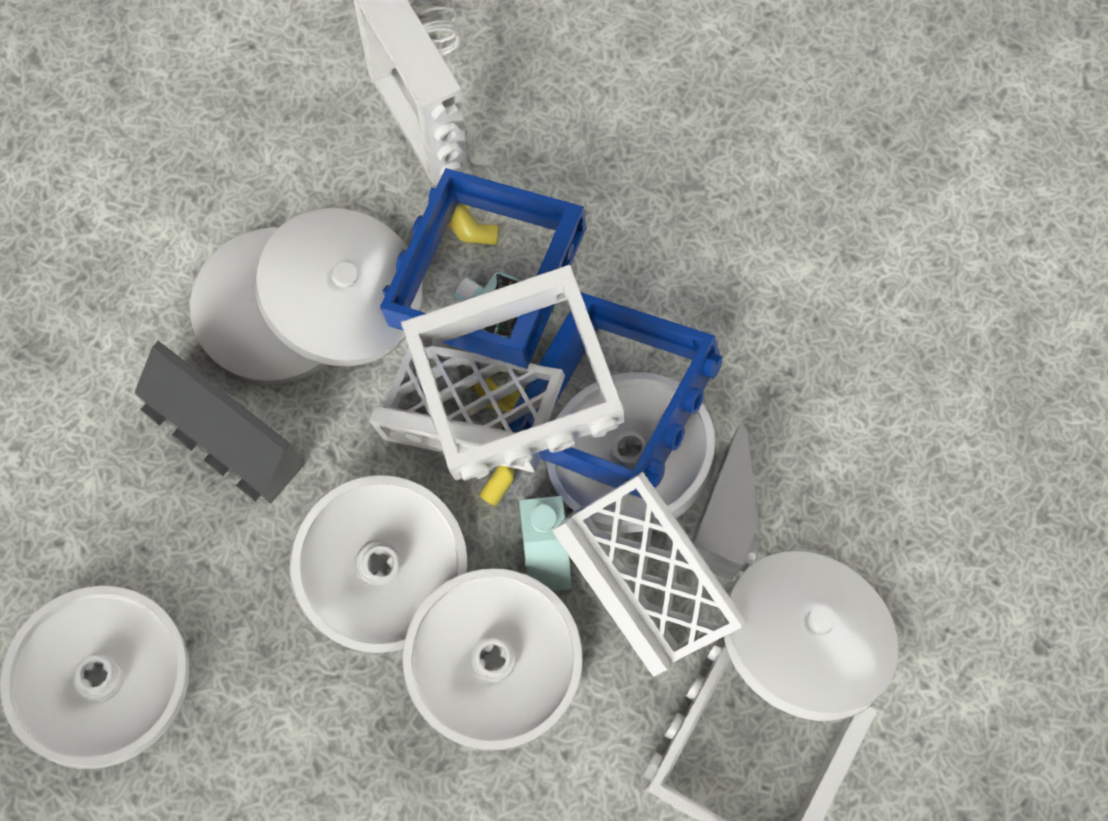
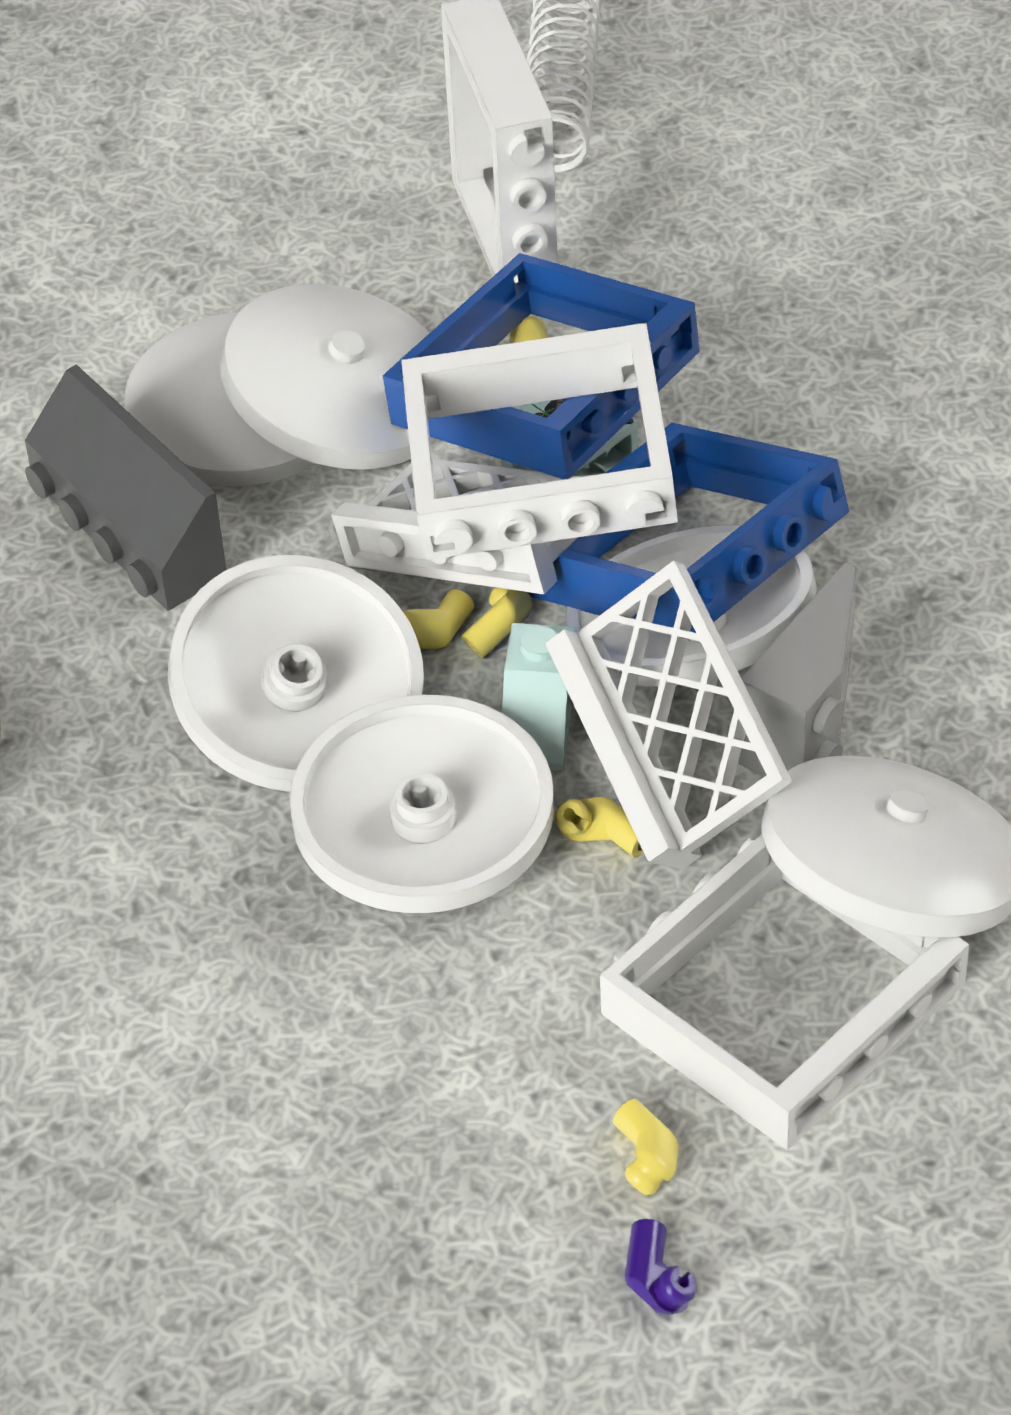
camera: 20 degrees right, 25 degrees down
(454, 492) = (438, 626): none -> light yellow arm
(604, 635) = (597, 821): none -> light yellow arm

